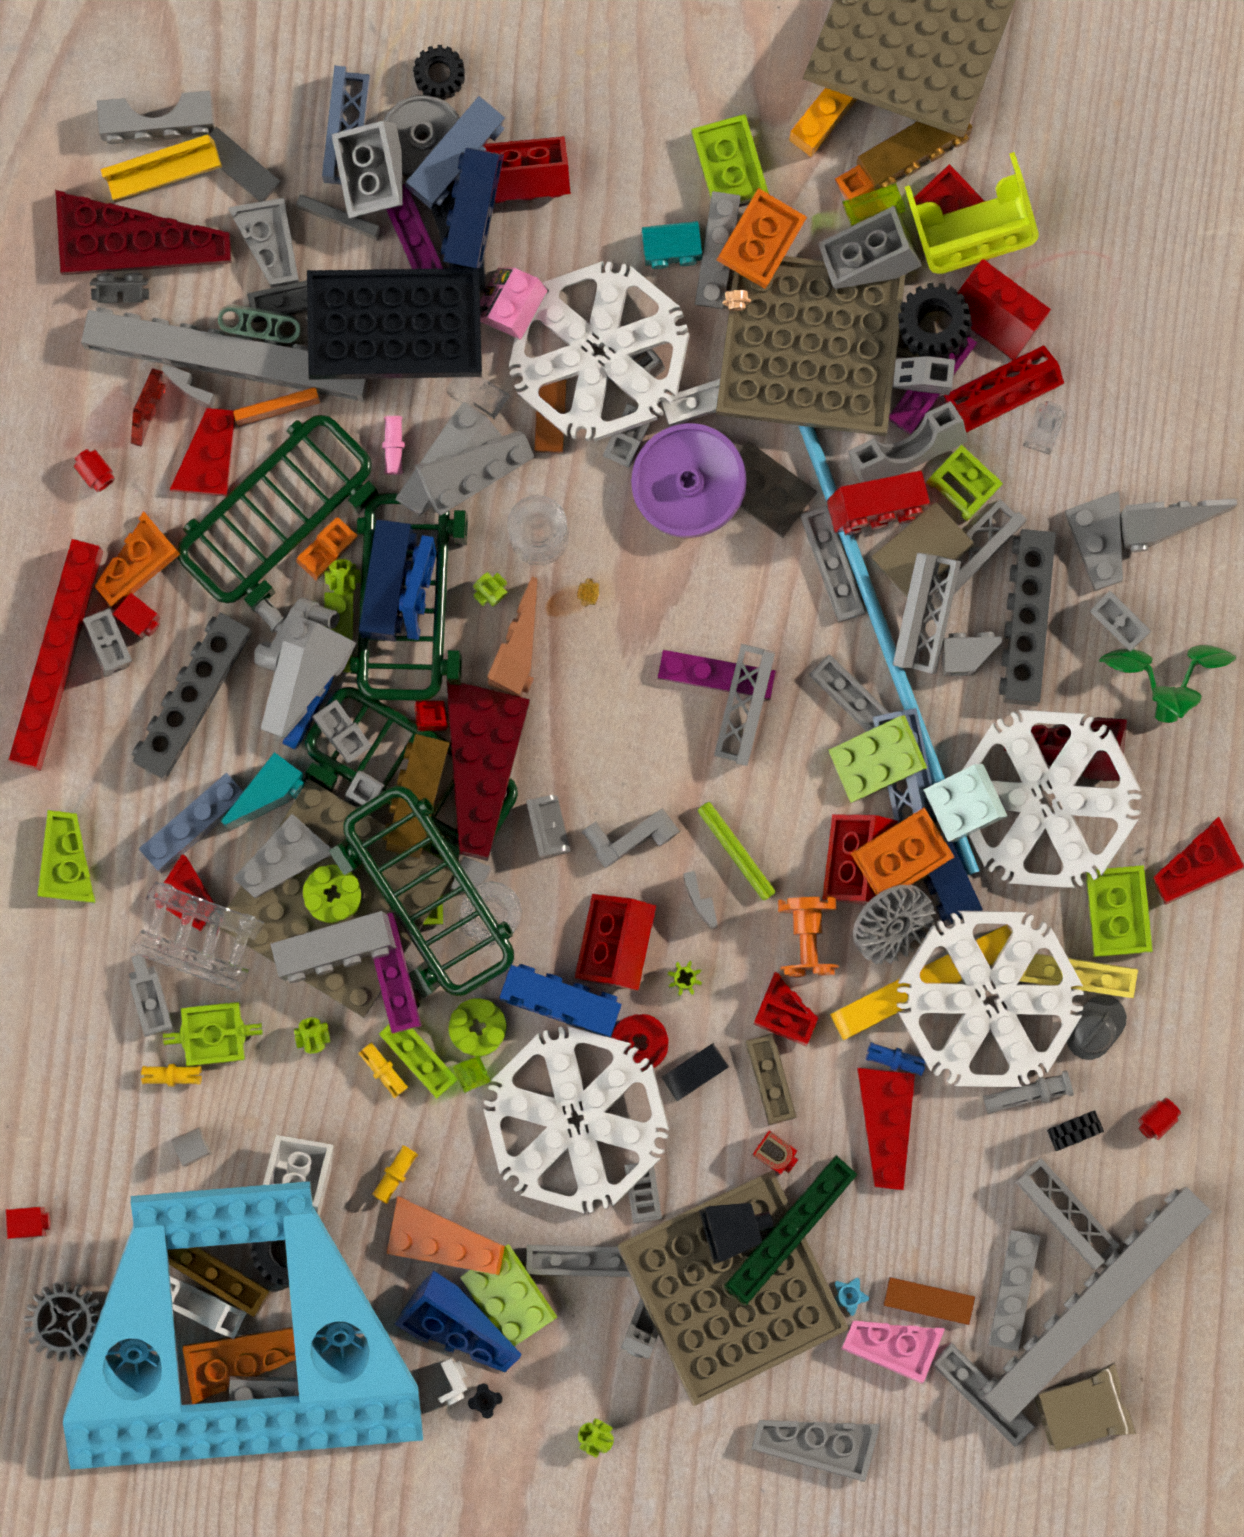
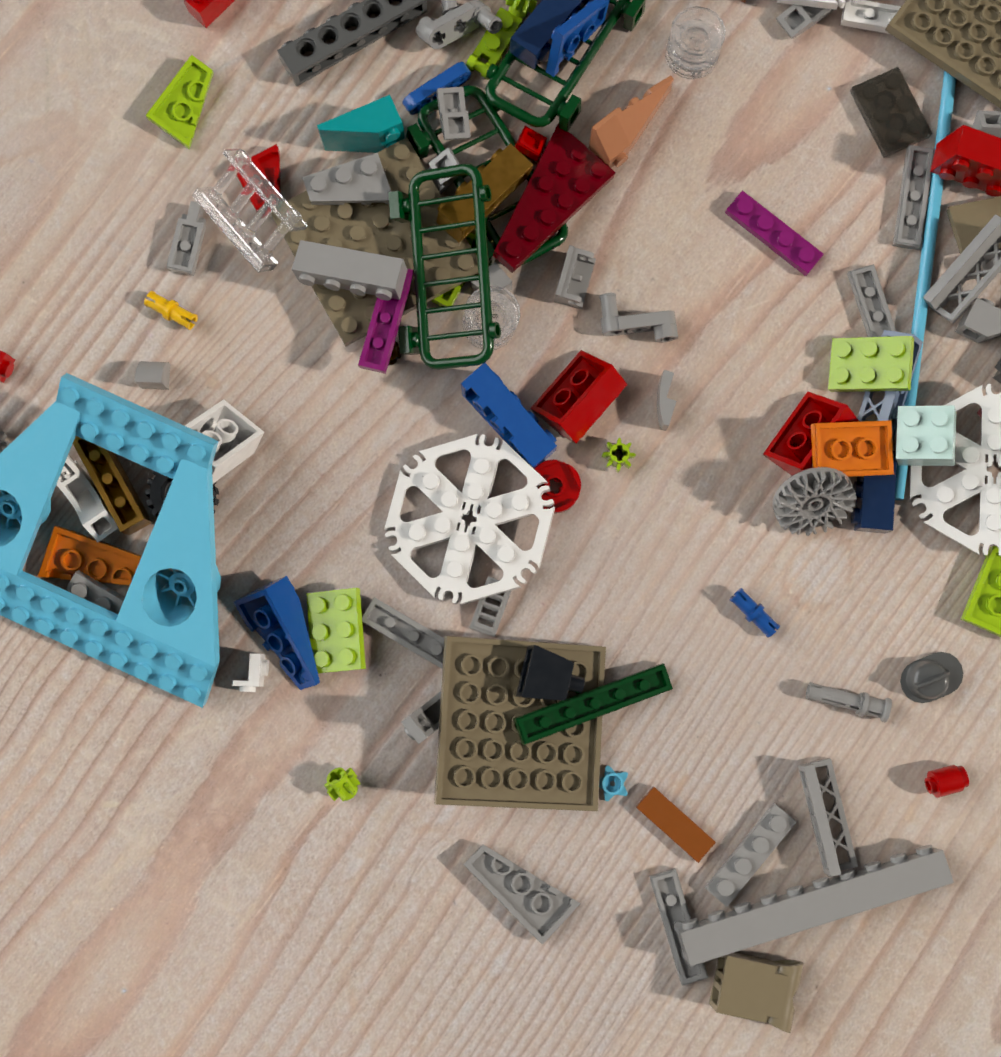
camera: 30 degrees right, 0 degrees up
(191, 824) = (291, 125): sand blue brick -> none
(212, 1034) = (220, 296): lime plate -> none
(304, 666) = (456, 44): light grey wedge -> none
(312, 1035) = (297, 338): lime gear -> none
(339, 909) = (373, 217): lime plate -> none
(383, 1070) = (338, 396): yellow pin -> none
(394, 1174) = (300, 483): yellow pin -> none
(420, 1060) = (372, 404): lime plate -> none
(434, 1239) = (301, 550): orange wing -> none
(463, 1018) = (443, 394): lime plate -> none
(471, 1074) = (406, 437): clear neon green plate -> none
(484, 1392) = (263, 703): black plate -> none
(490, 589) = (631, 71): lime gear -> none
(588, 592) = (707, 115): clear yellow plate -> none
(688, 480) = (836, 68): medium lavender dish -> none
(695, 1072) = (586, 534): black slope -> none
(736, 851) = (714, 378): lime axle -> none
(756, 698) = (795, 268): light grey fence -> none
(770, 1079) = (643, 573): dark tan tile -> none
(776, 1153) = (615, 635): brick -> none
(785, 1013) = (684, 527): red wing -> none
(807, 924) = (746, 456): orange piece -> none
(883, 1002) = (812, 564): yellow beam -> none
(887, 1116) = (722, 655): red wing -> none
(895, 1347) = (629, 849): bright pink wing -> none
(963, 999) = (844, 594): white plate -> none
(1075, 1130) = (873, 752): black tyre -> none
(1094, 976) = (941, 626): light yellow plate -> none

